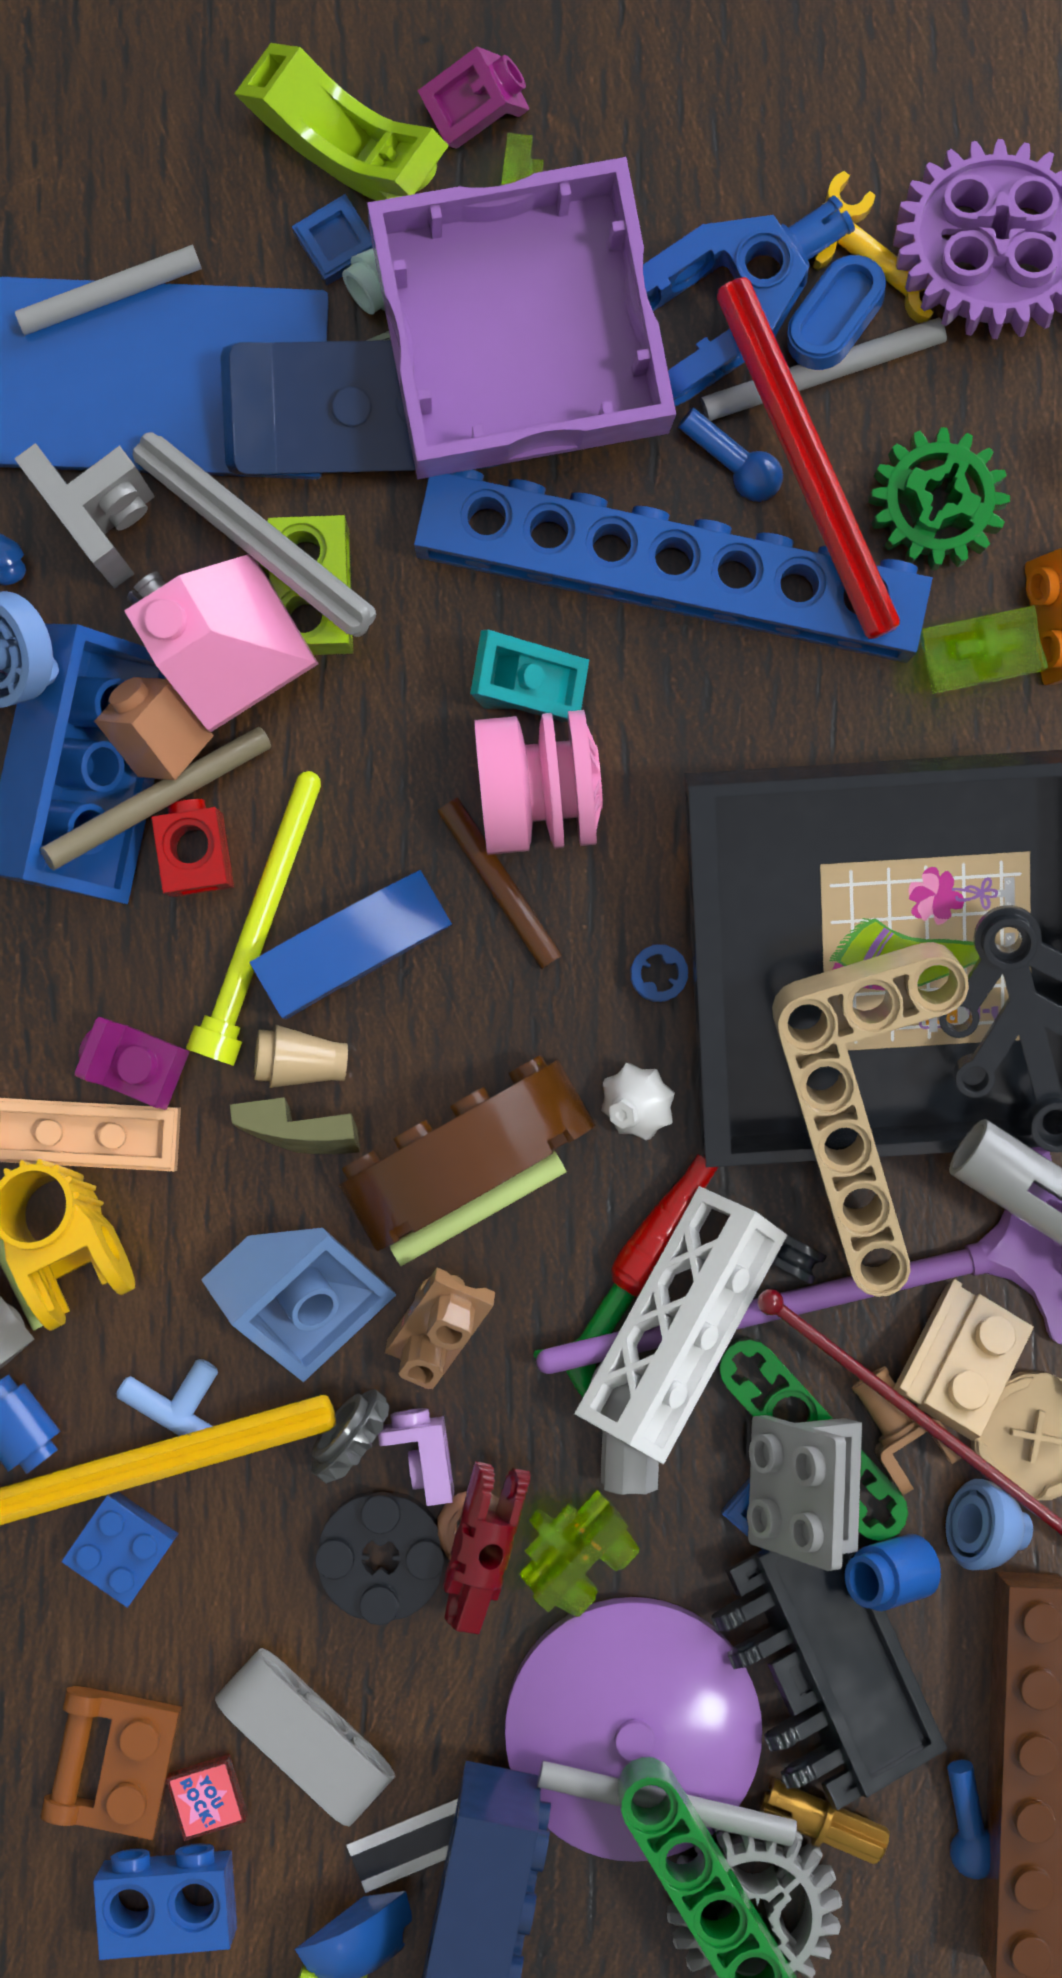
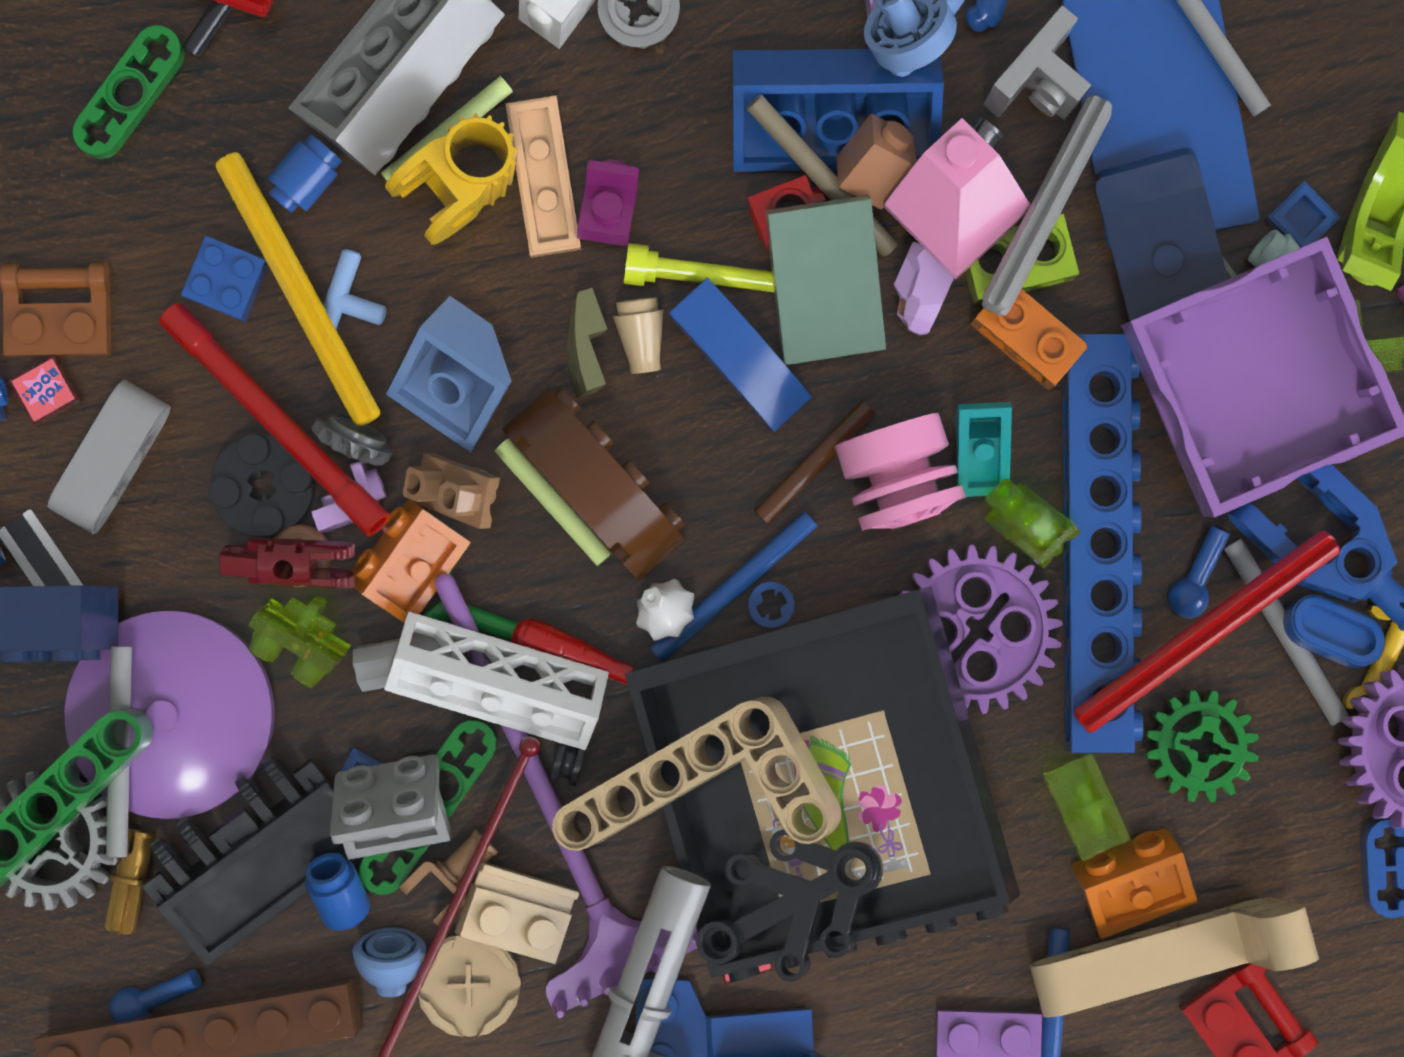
camera: 75 degrees right, 0 degrees up
(283, 820) = (826, 279): none -> sand green tile
(320, 709) = (921, 289): none -> lavender rock
(411, 589) = (1032, 339): none -> orange bracket
(414, 1458) = (348, 494): none -> red piece
(511, 1400) = (407, 560): none -> orange bracket
(624, 1007) = (737, 583): none -> blue bar
(629, 641) = (1029, 521): none -> clear neon green hips
(788, 700) = (1012, 661): none -> medium lavender gear

